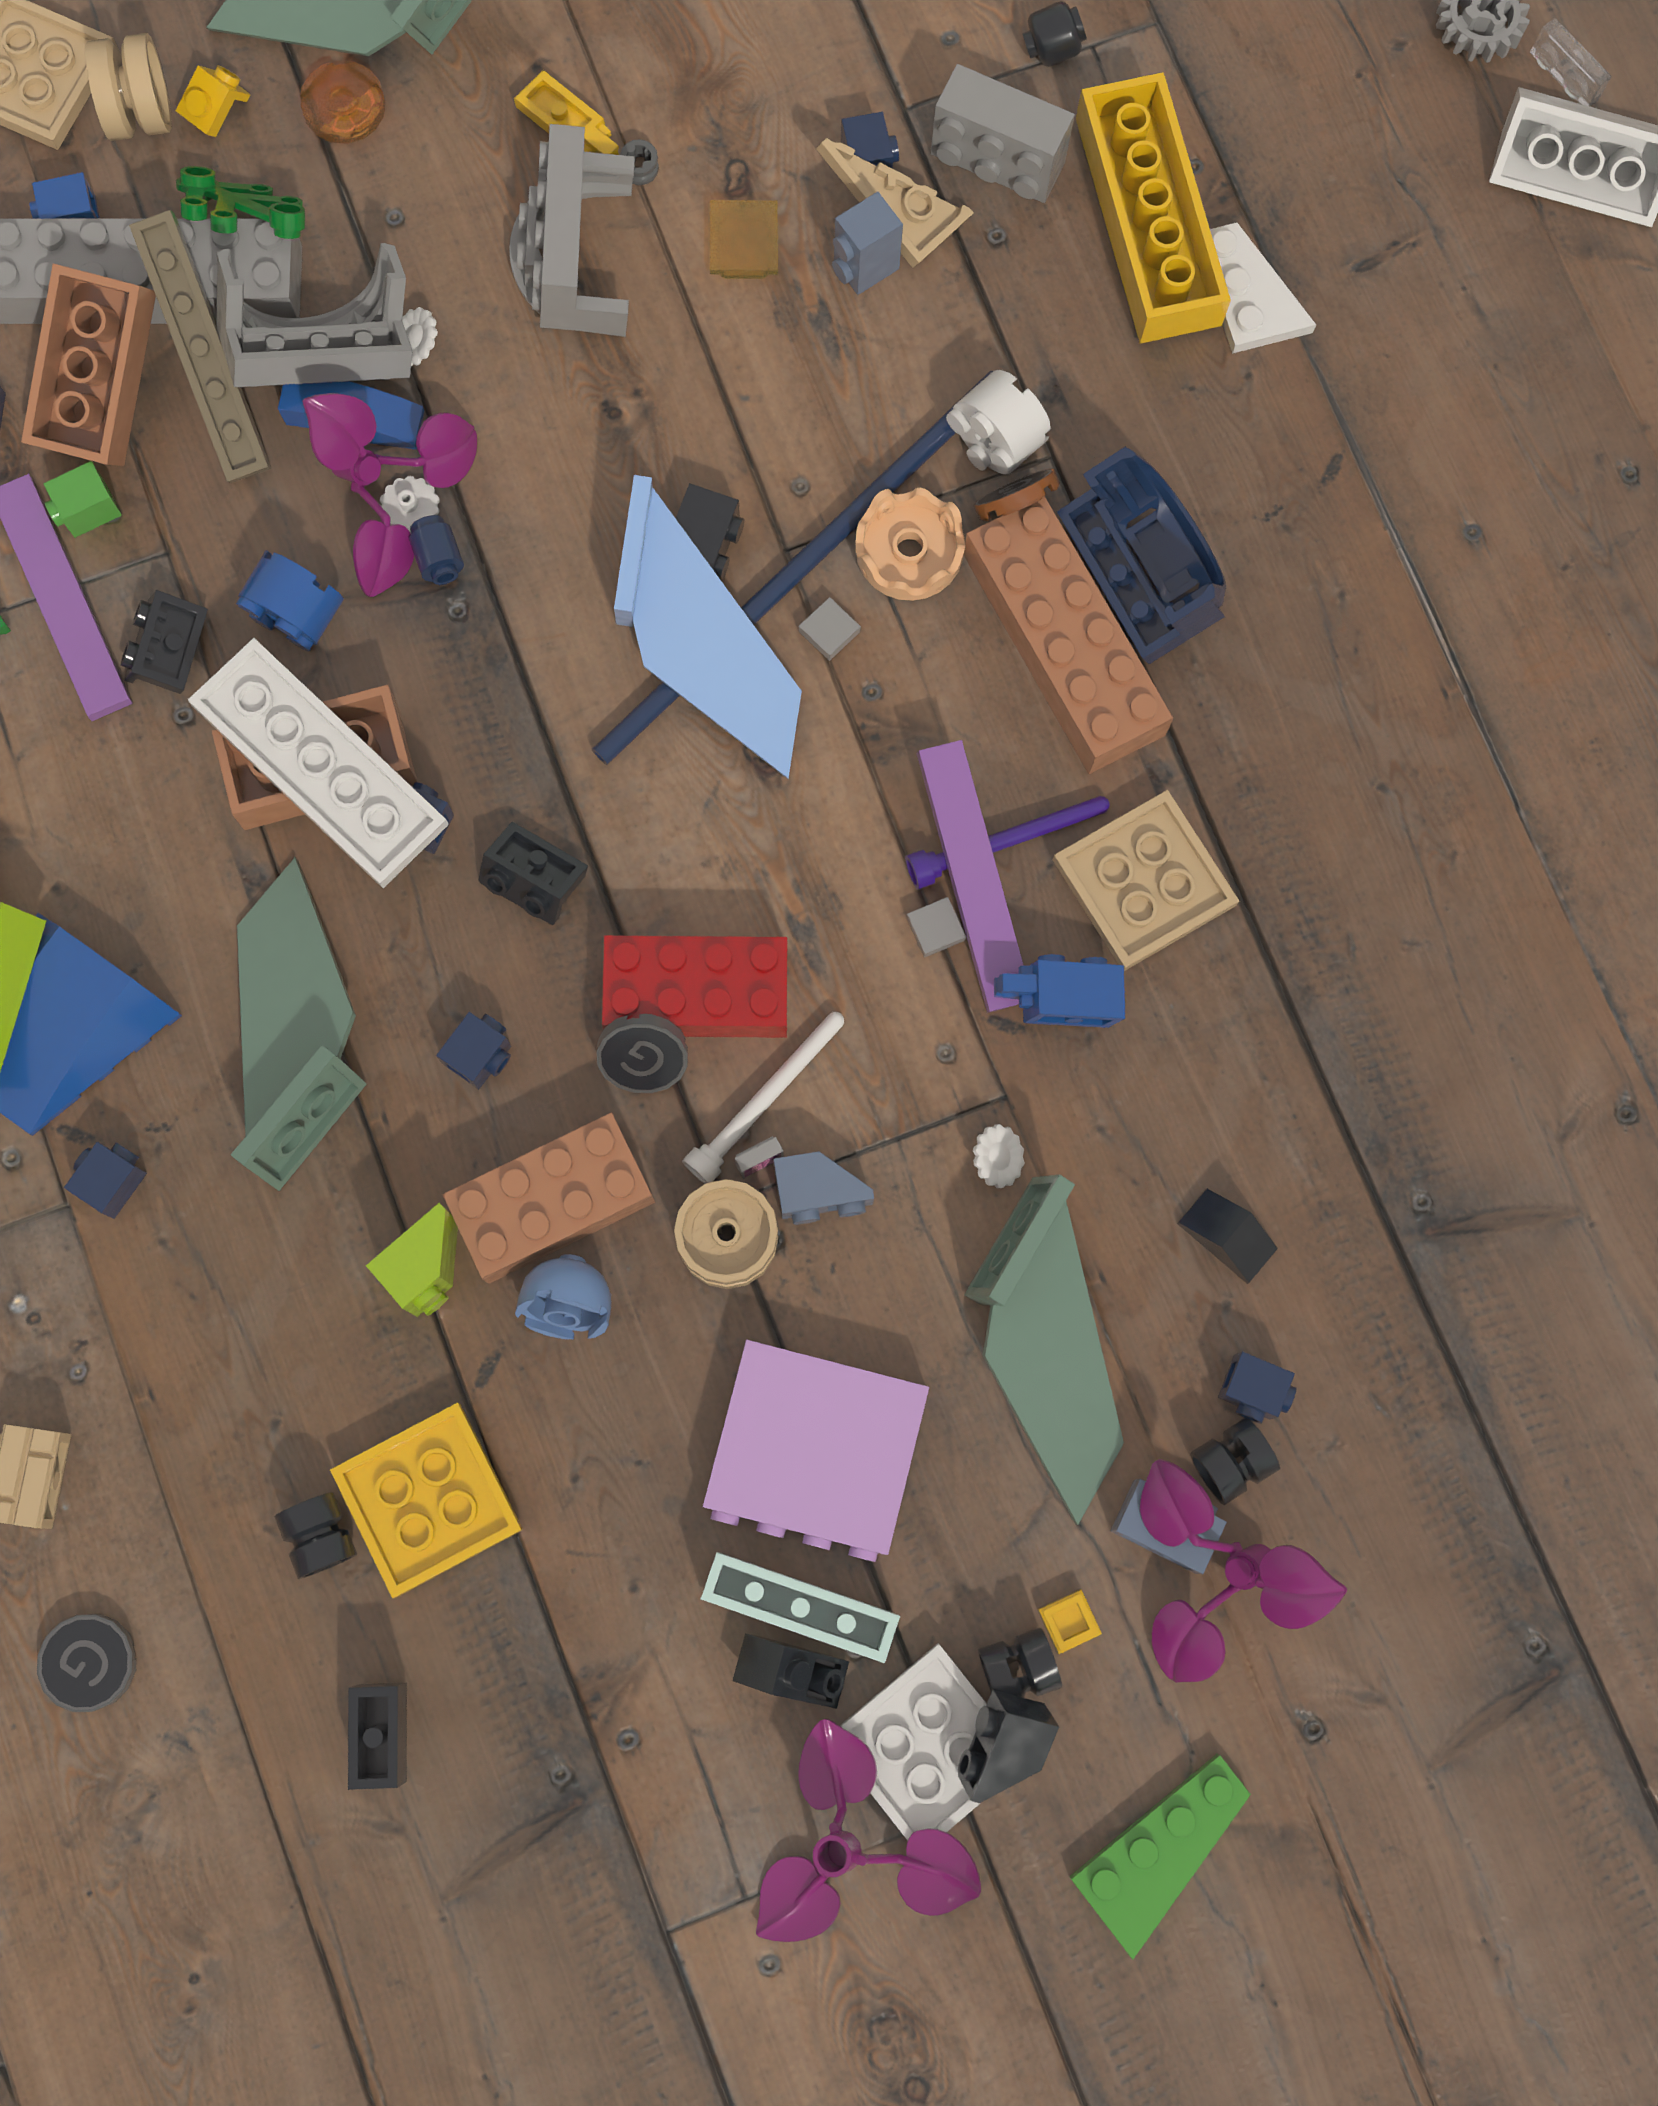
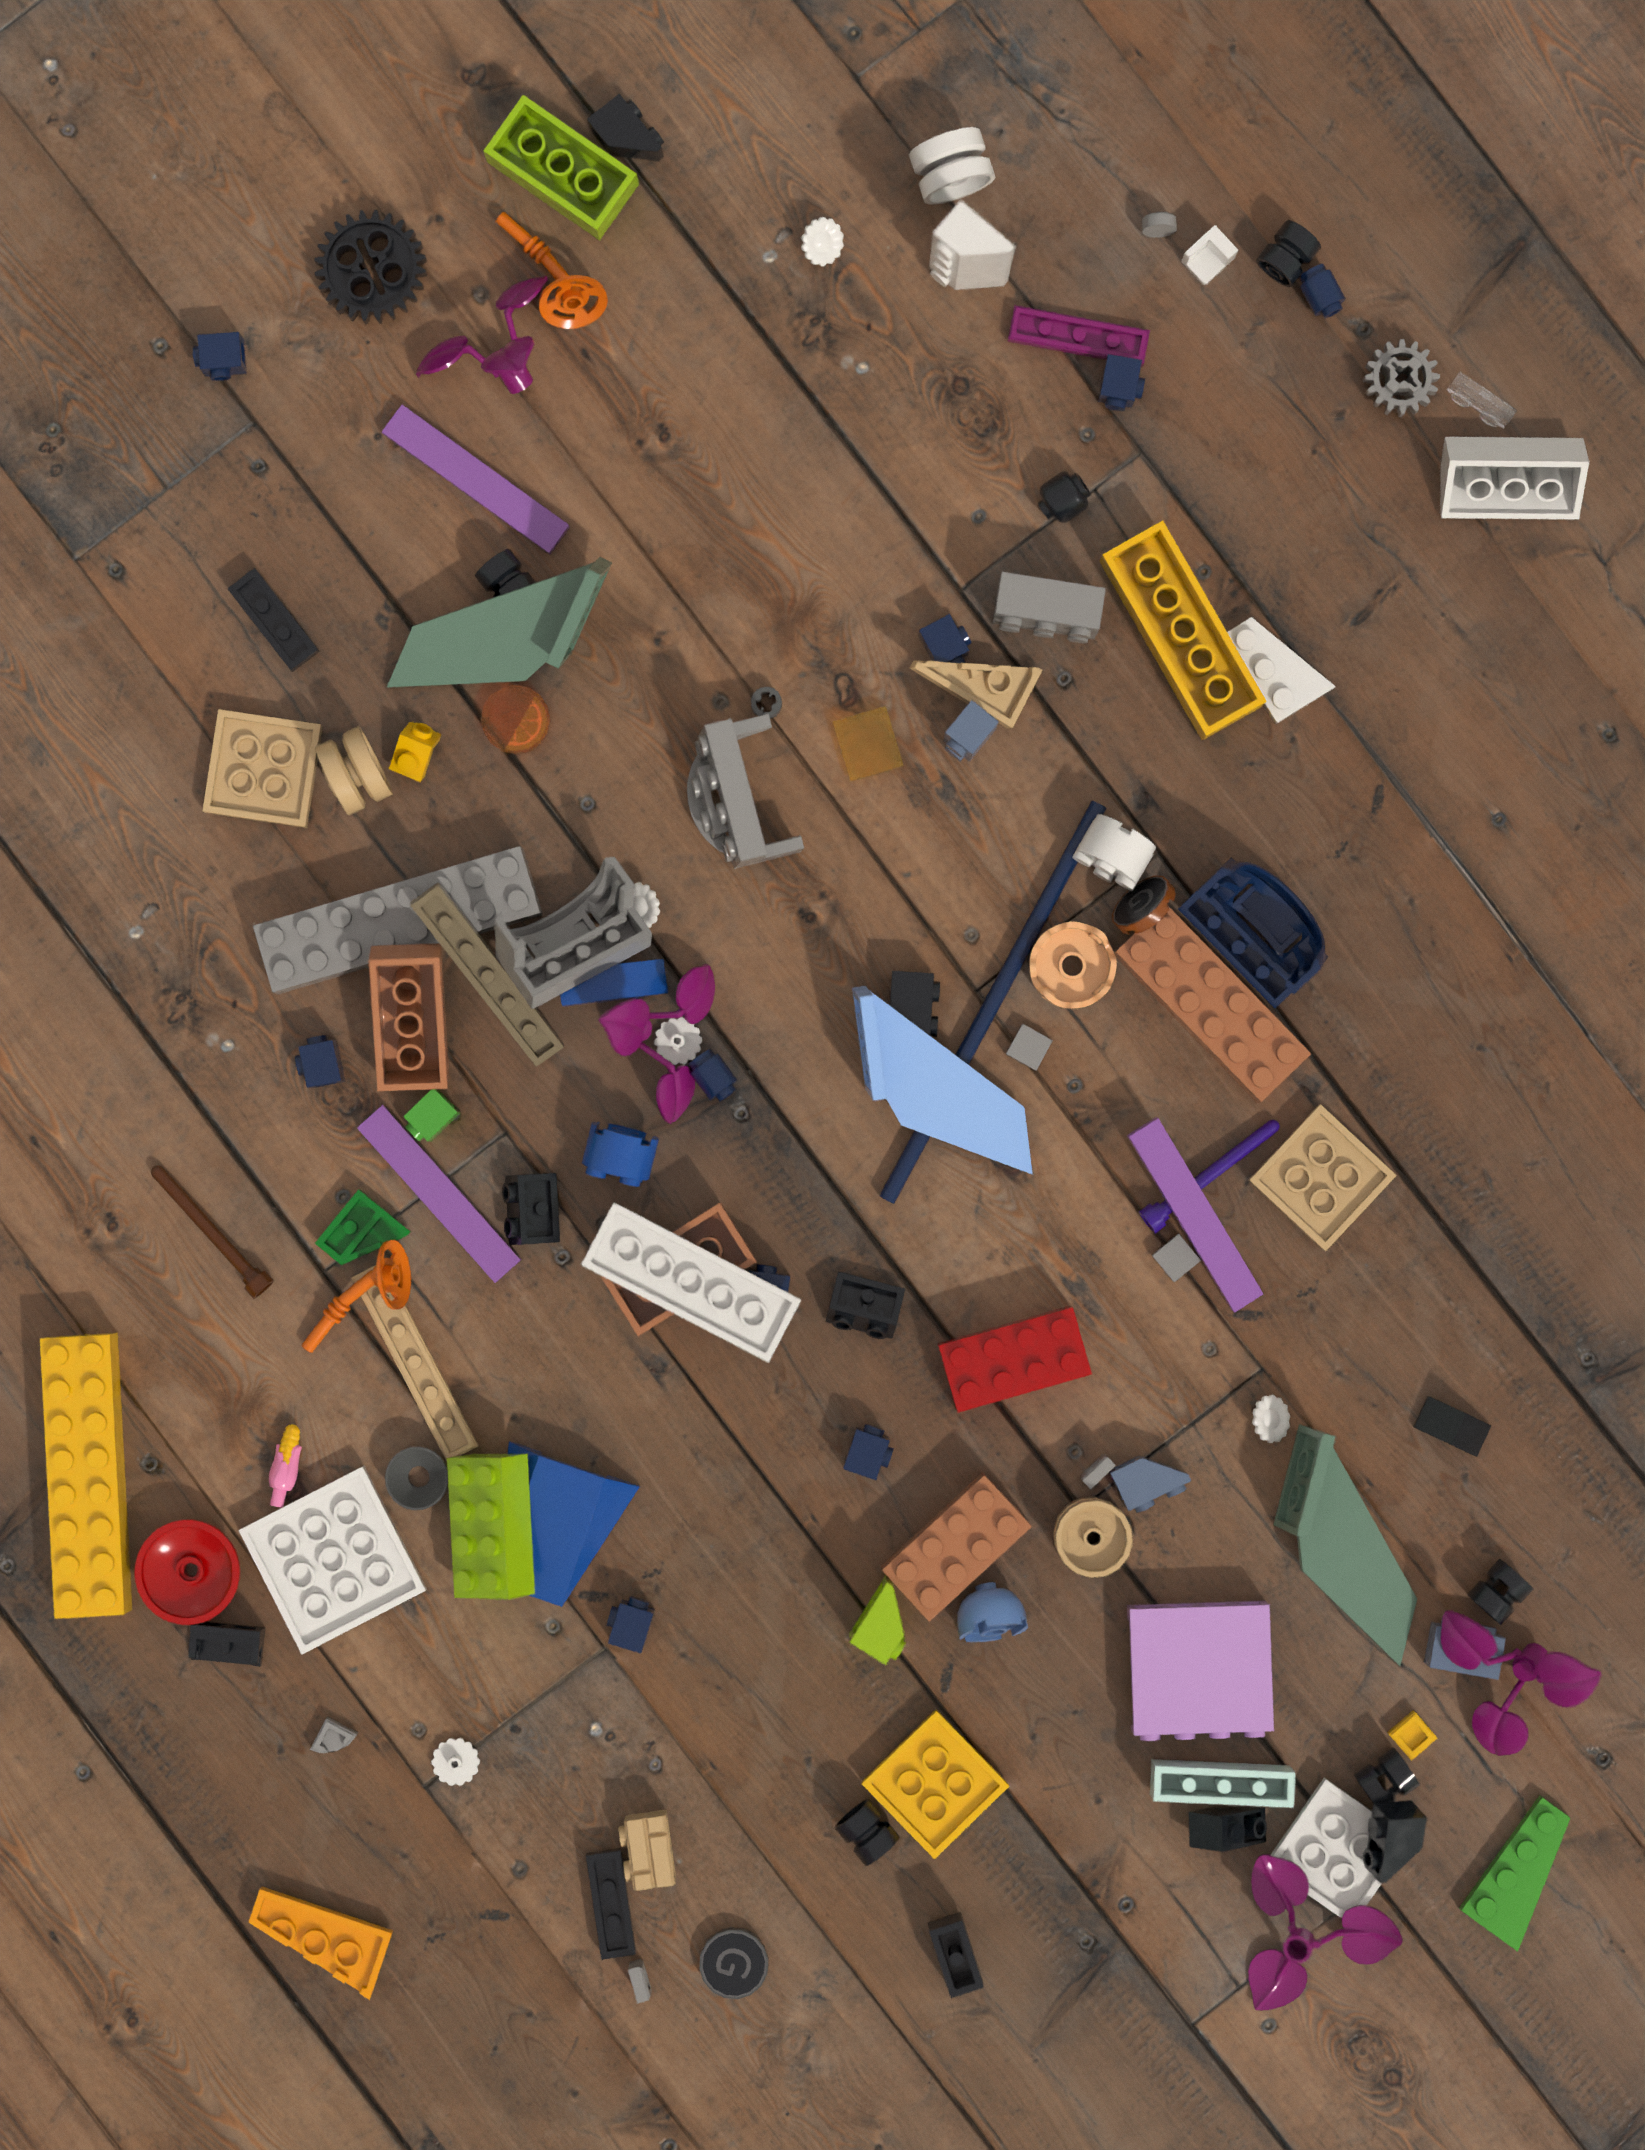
camera: 10 degrees left, 10 degrees up
(64, 198) = (334, 879): blue brick -> none
(200, 185) = (434, 832): green plant -> none
(290, 1031) = (727, 1471): sand green piece -> none
(551, 103) = (699, 685): yellow hinge -> none
(642, 1053) = (991, 1423): tile -> none
(708, 1158) = (1060, 1482): white piece -> none
(1067, 992) = (1288, 1285): blue hinge -> none
(1257, 1388) = (1502, 1534): dark blue brick -> none

